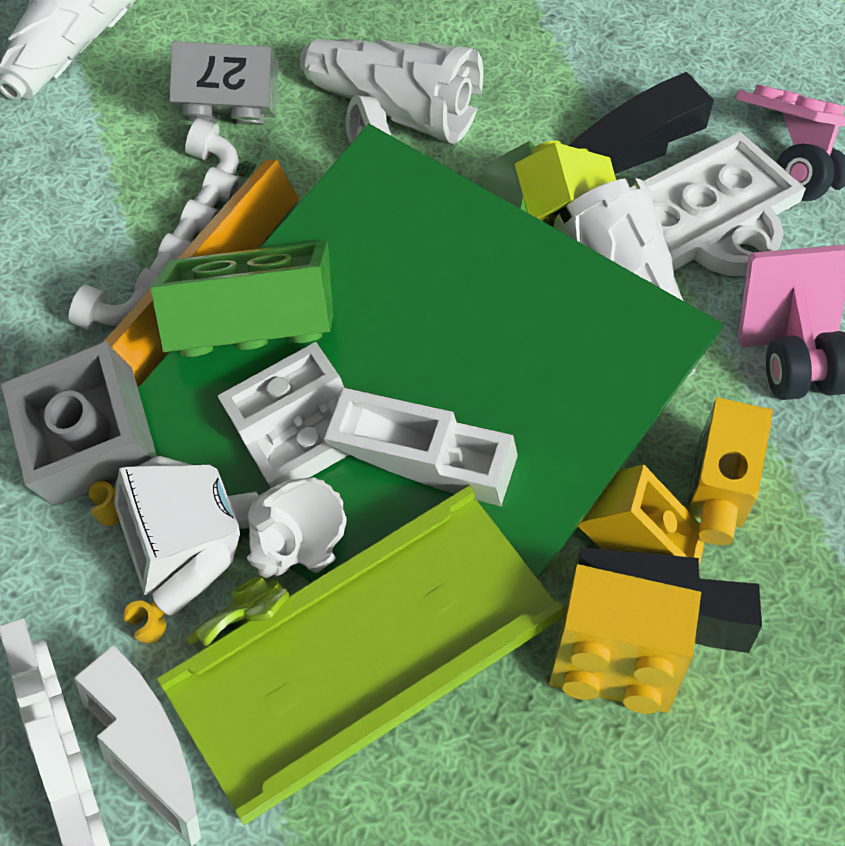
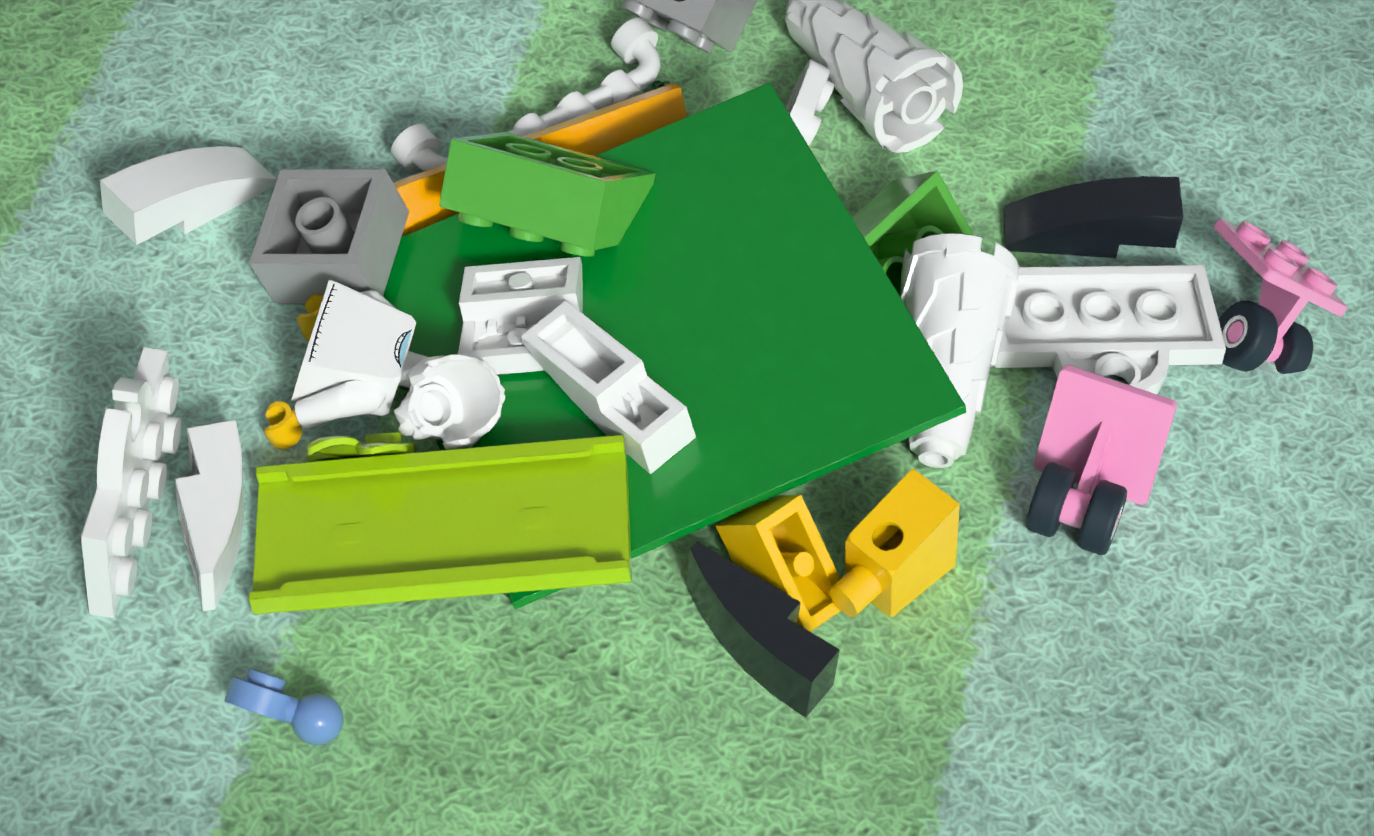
camera: 30 degrees right, 5 degrees down
(558, 176) = (936, 207): neon yellow brick -> none
(625, 640) = (672, 628): yellow brick -> none

